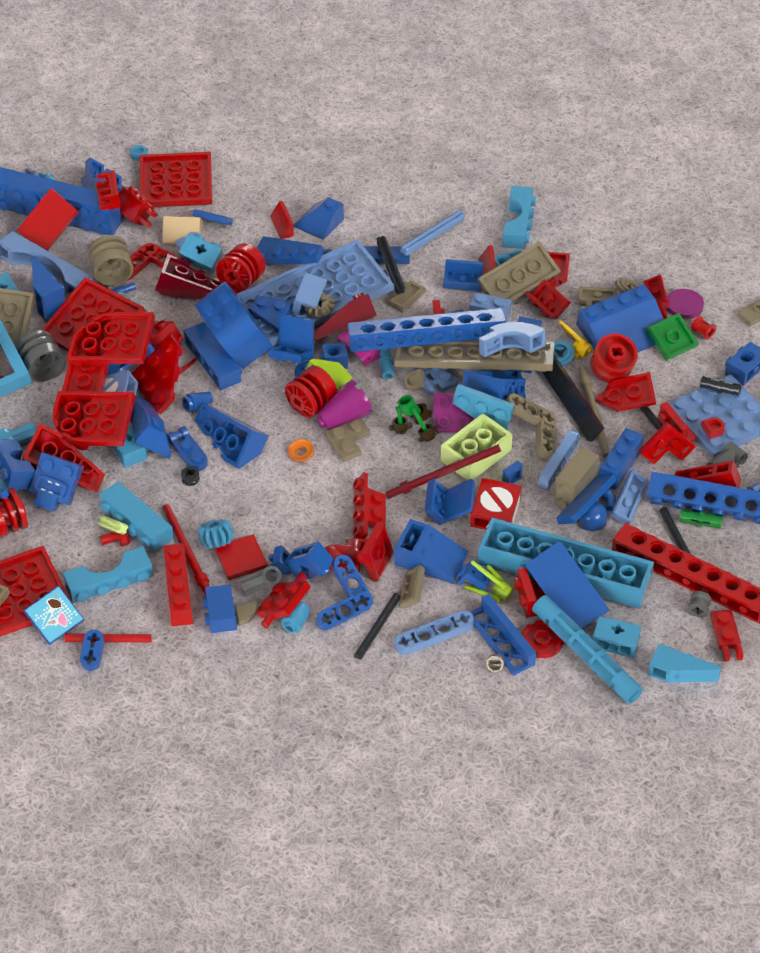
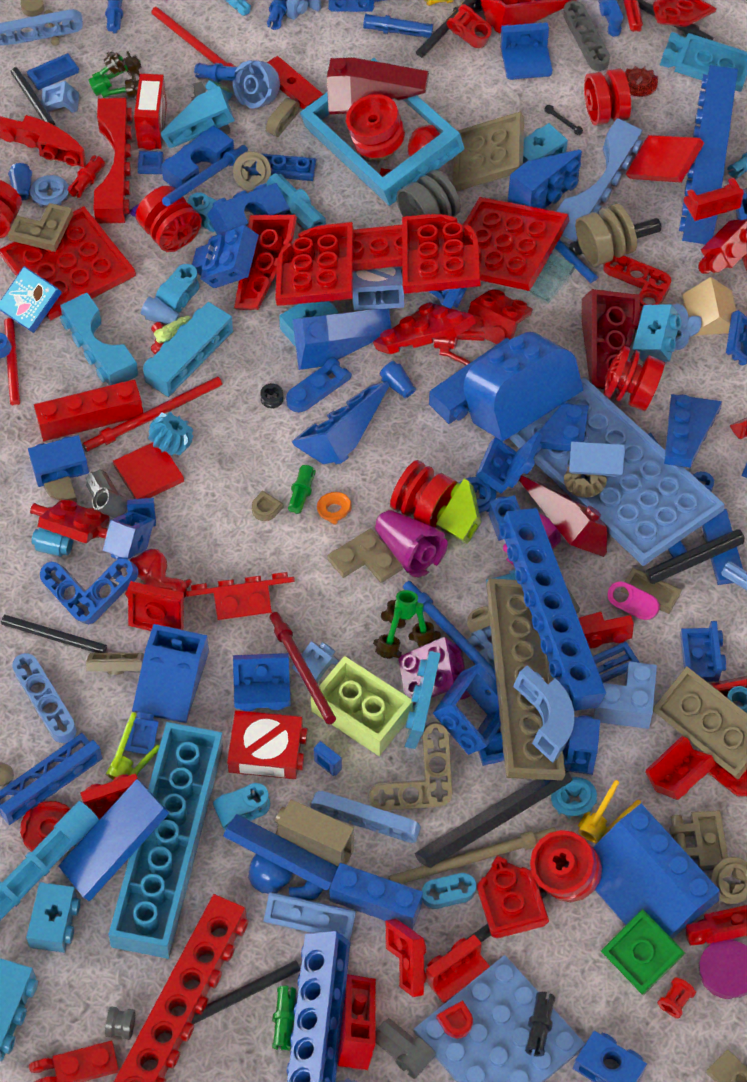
camera: 80 degrees right, 10 degrees up
(71, 519) = (179, 287): none -> dark azure piece
(87, 537) = (158, 311): none -> medium blue cone
(282, 466) = (301, 488): none -> green axle
(290, 490) = (266, 507): none -> dark tan tile
(391, 411) = (450, 630): none -> blue bar
(417, 300) = (638, 603): none -> dark pink piece
(430, 466) = (318, 659): none -> medium blue bracket
(542, 518) = (241, 803): none -> dark azure piece
(613, 426) = (447, 884): none -> dark azure beam

